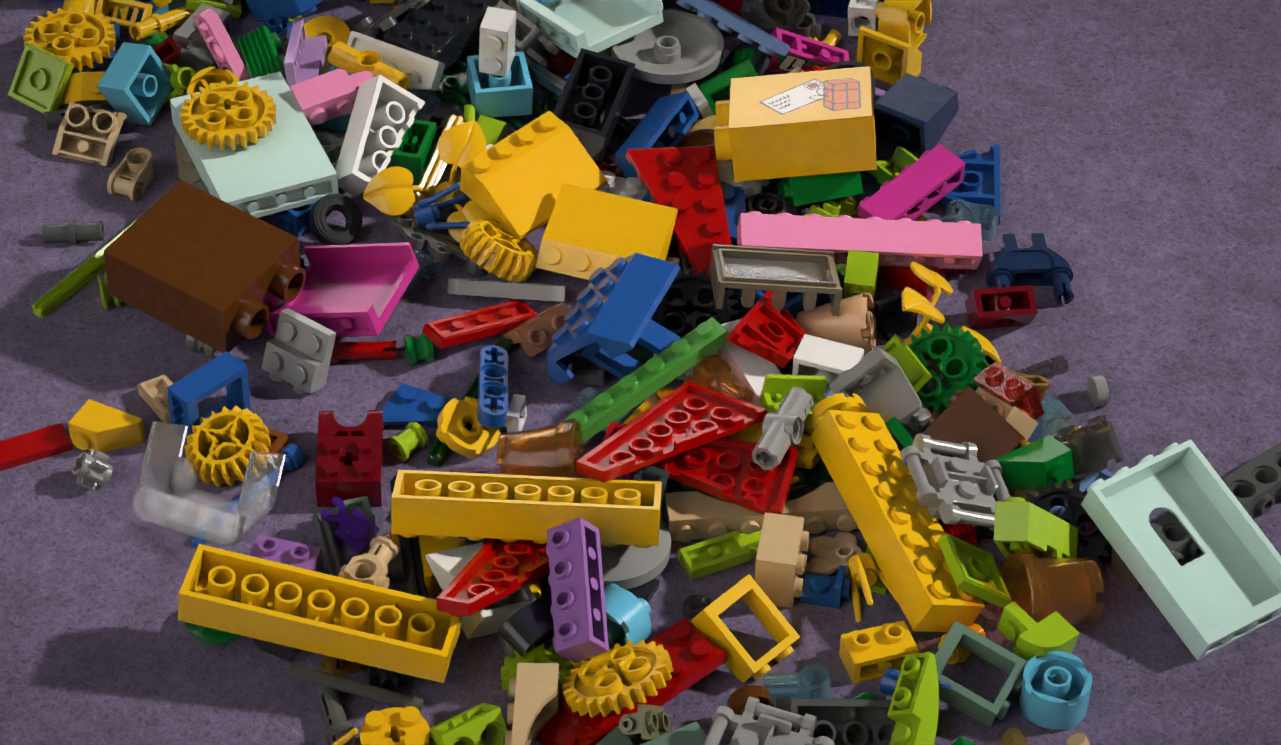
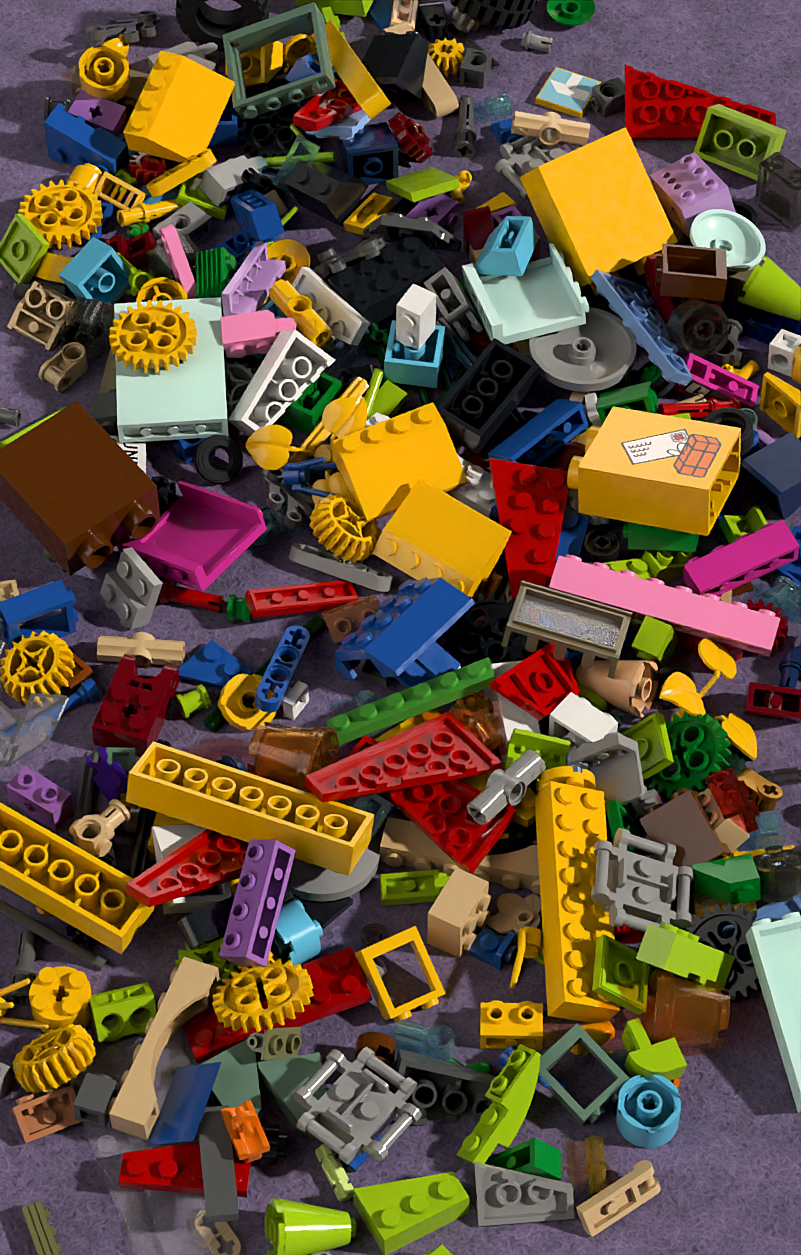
camera: 20 degrees right, 10 degrees up
(147, 126) = (86, 323): none -> clear smoke brick
(344, 405) = (143, 647): none -> tan piece

